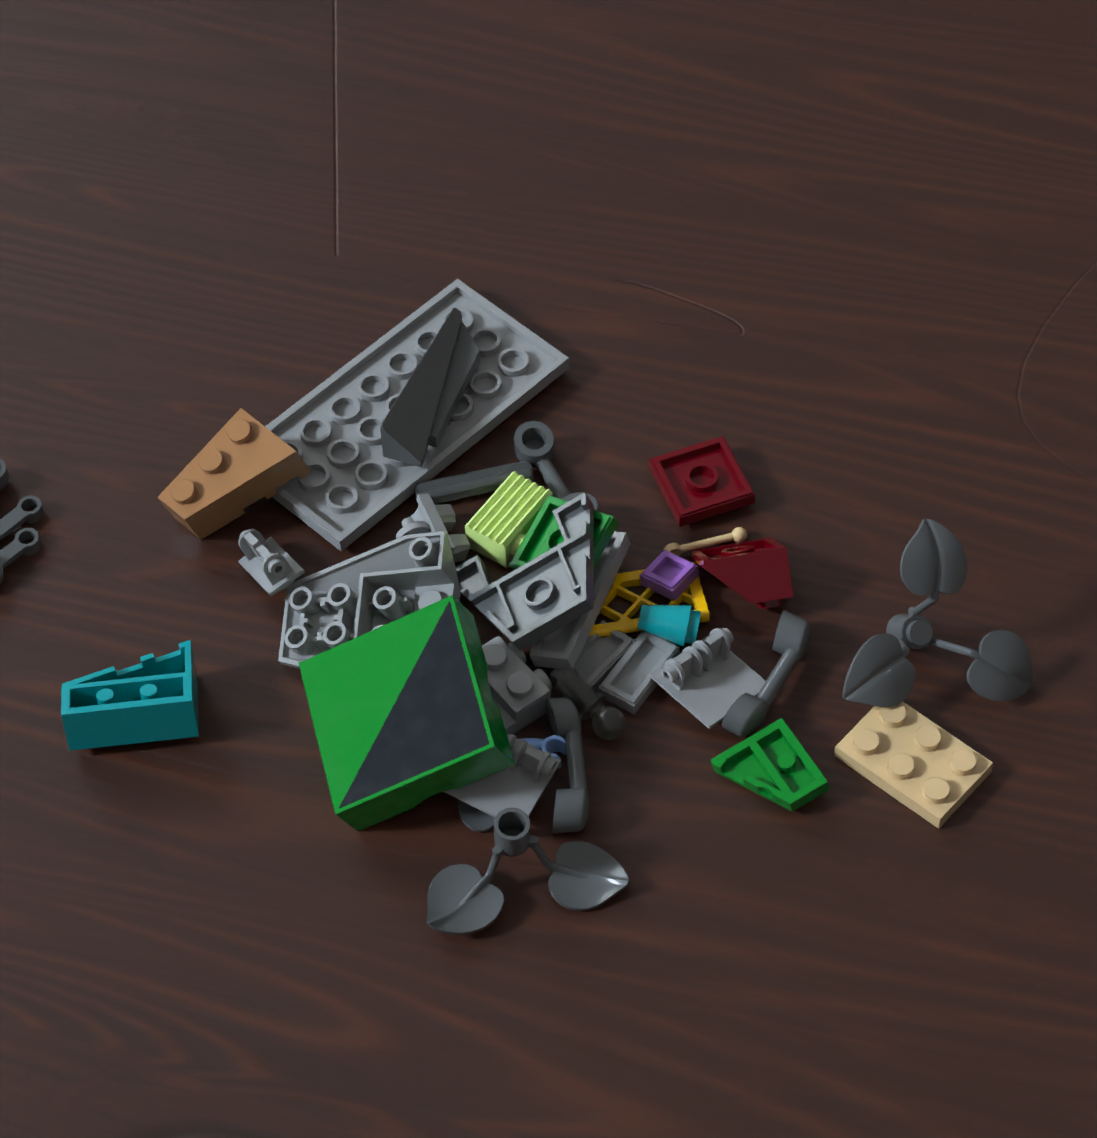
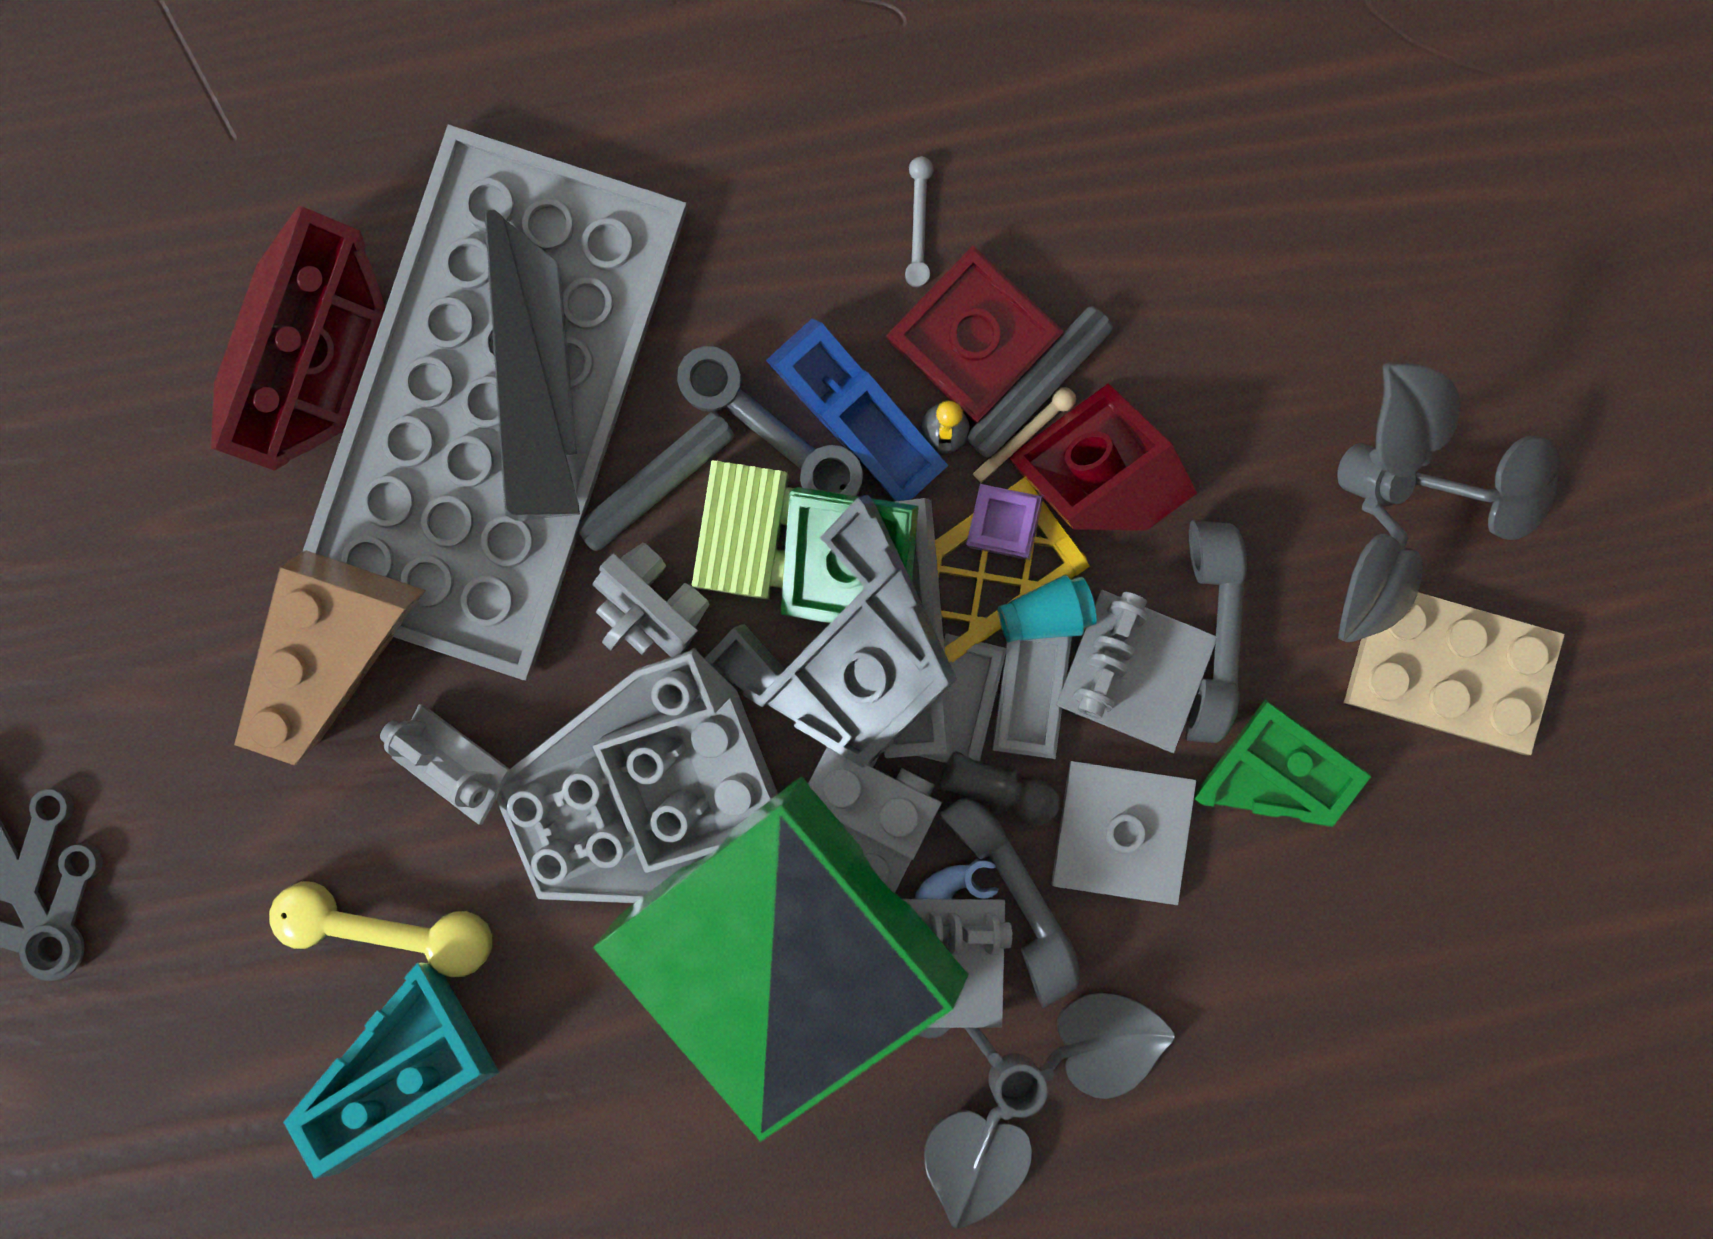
camera: 25 degrees left, 35 degrees up
(214, 656) = (308, 914): none -> light yellow piece
(316, 338) = (297, 343): none -> dark red wedge
(611, 482) = (857, 411): none -> blue slope
(656, 765) = (1123, 833): none -> light grey plate
(659, 513) = (945, 422): none -> dark grey hinge
(714, 398) = (917, 272): none -> light grey hinge
(728, 518) = (1040, 382): none -> dark grey axle

